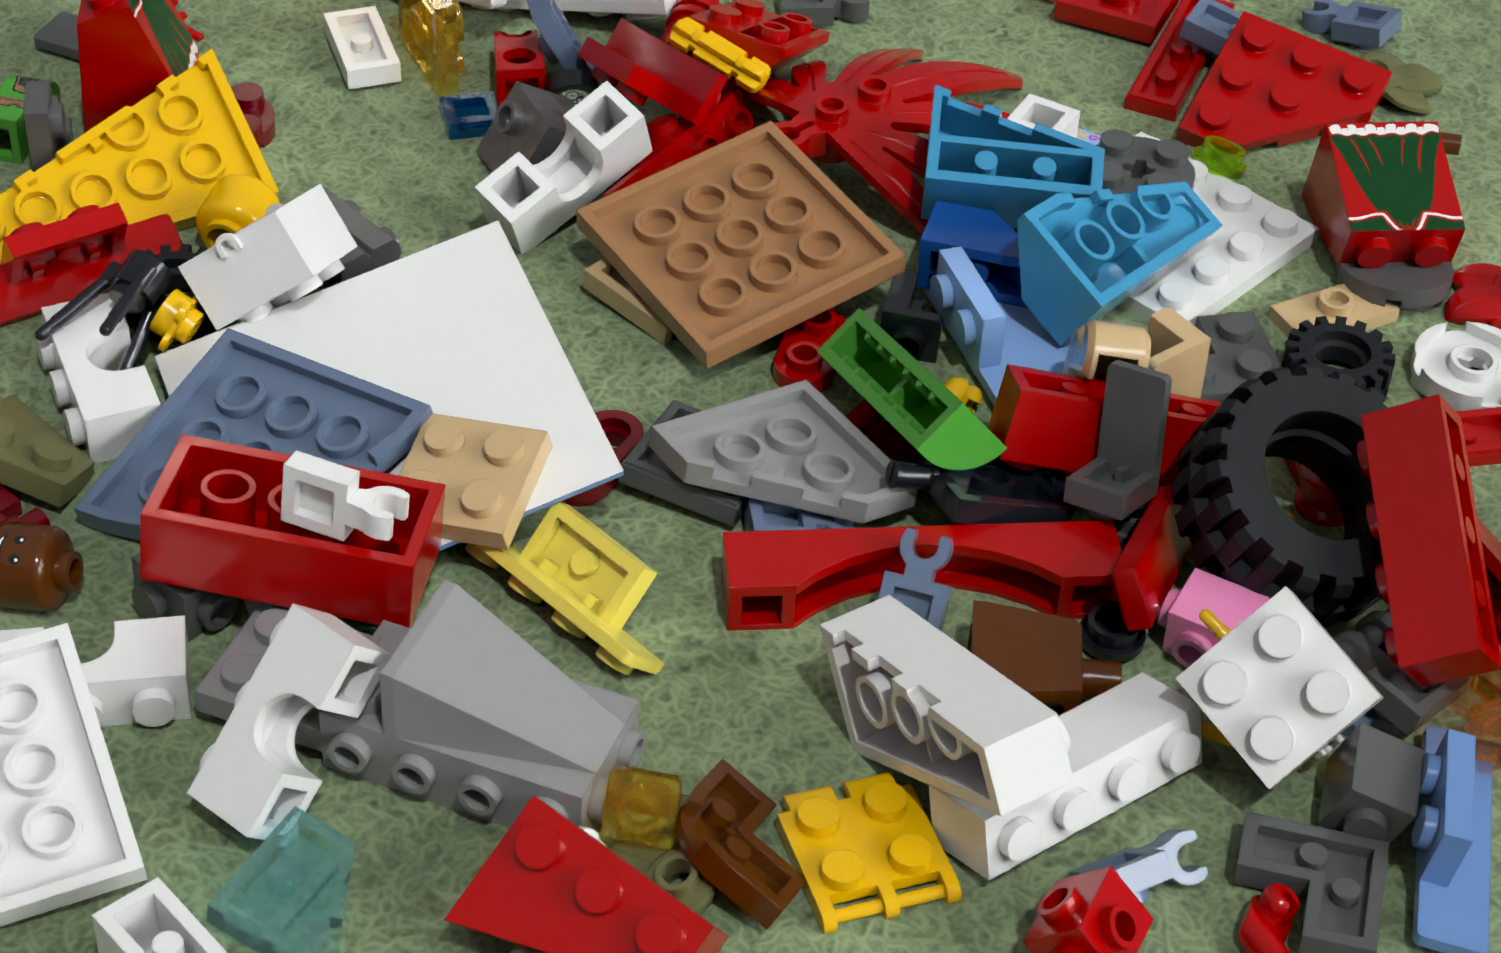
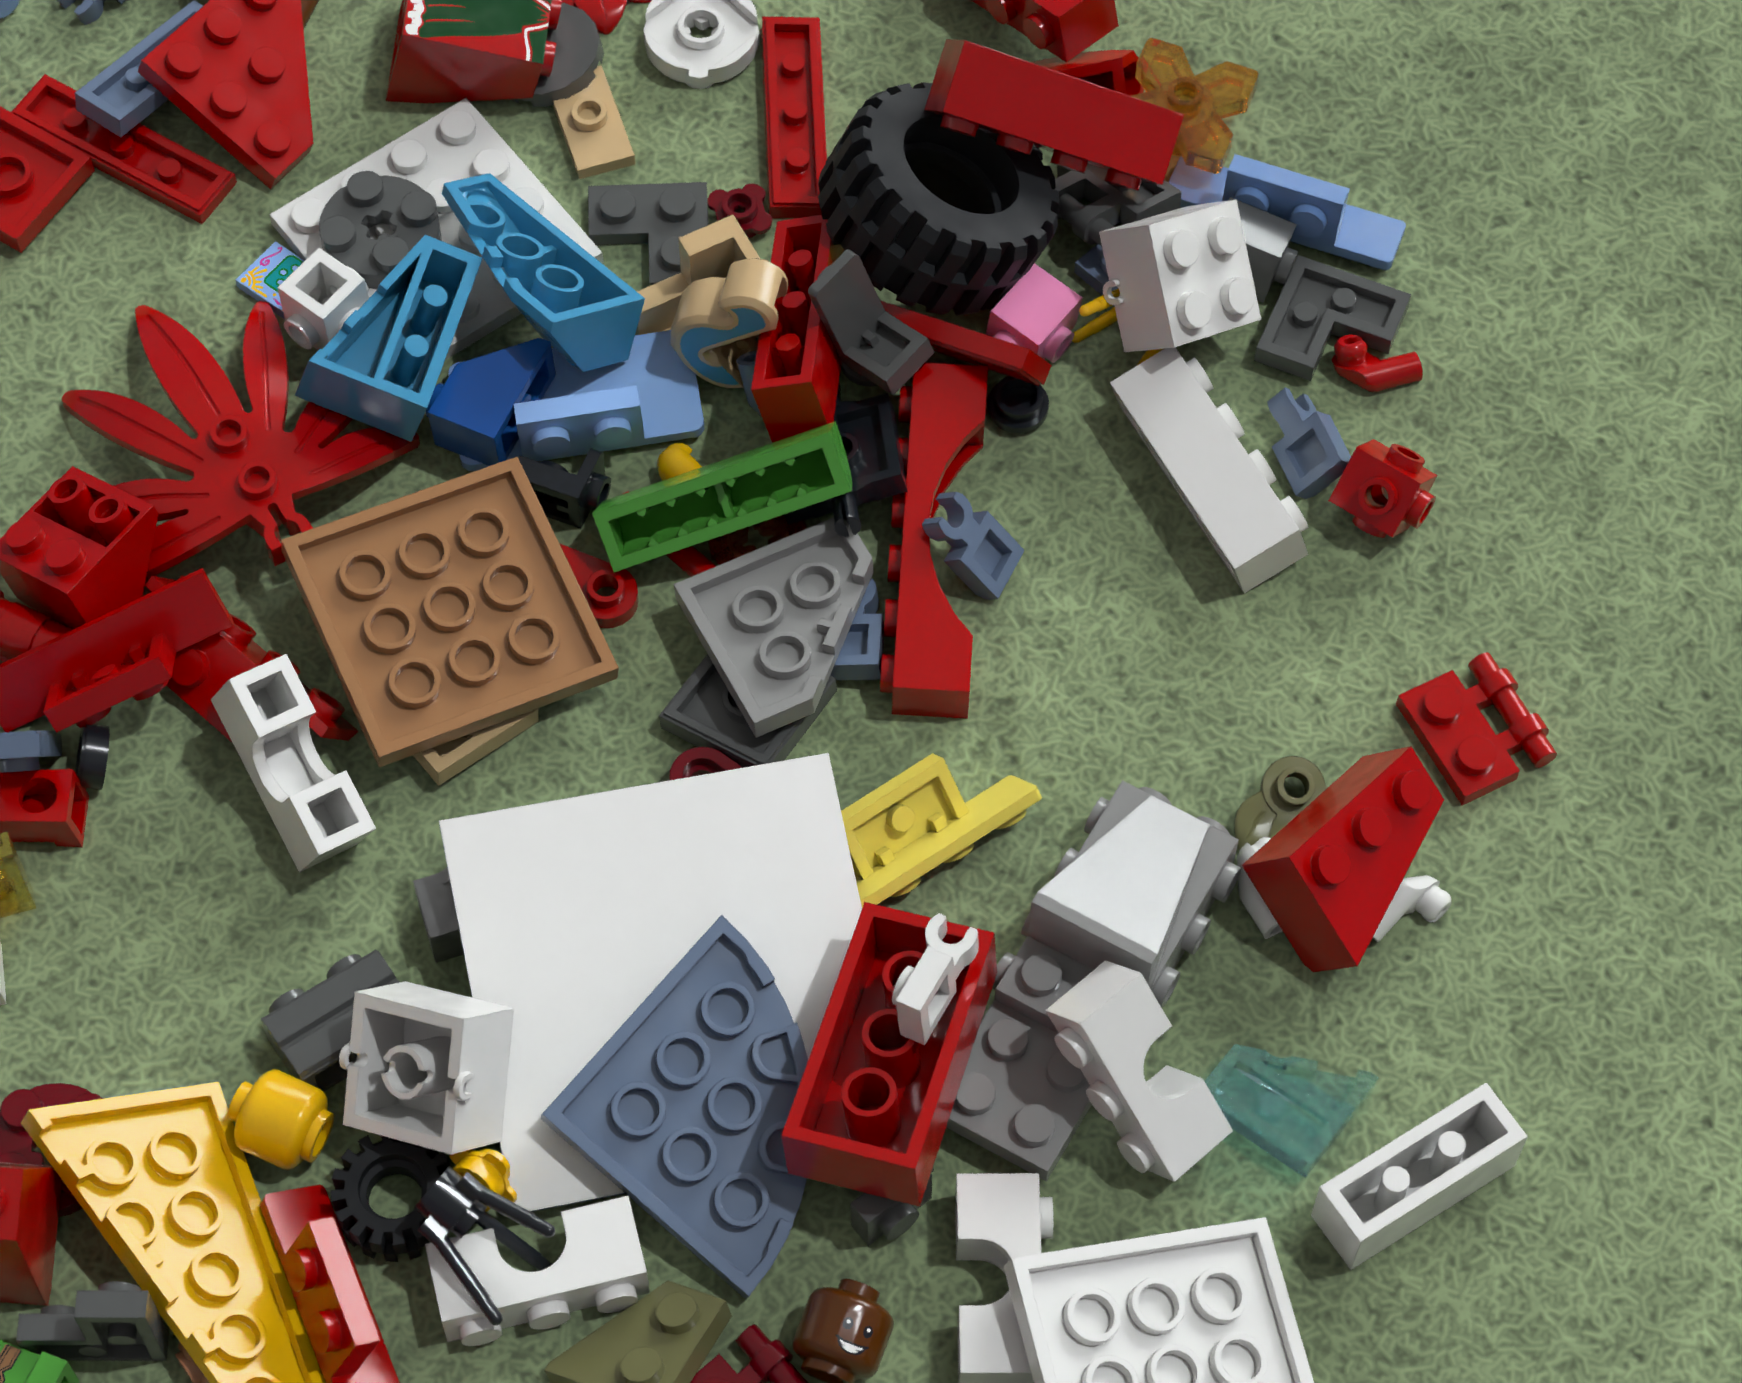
camera: 80 degrees left, 20 degrees up
(468, 114) = (90, 872): tile -> none
(486, 474) = (805, 898): tan plate -> none
(526, 123) = (184, 801): flat silver brick -> none
(642, 806) = (1226, 796): clear yellow bracket -> none
(718, 838) = (1274, 744): reddish brown plate -> none
(720, 55) = (128, 576): yellow axle -> none
(864, 848) = (1254, 646): yellow plate -> none
(941, 710) = (1189, 533): white wedge -> none
(1040, 654) = (1073, 477): reddish brown torso -> none
(1221, 157) = (333, 154): clear neon green plate -> none
(1343, 345) = (682, 110): black tyre -> none

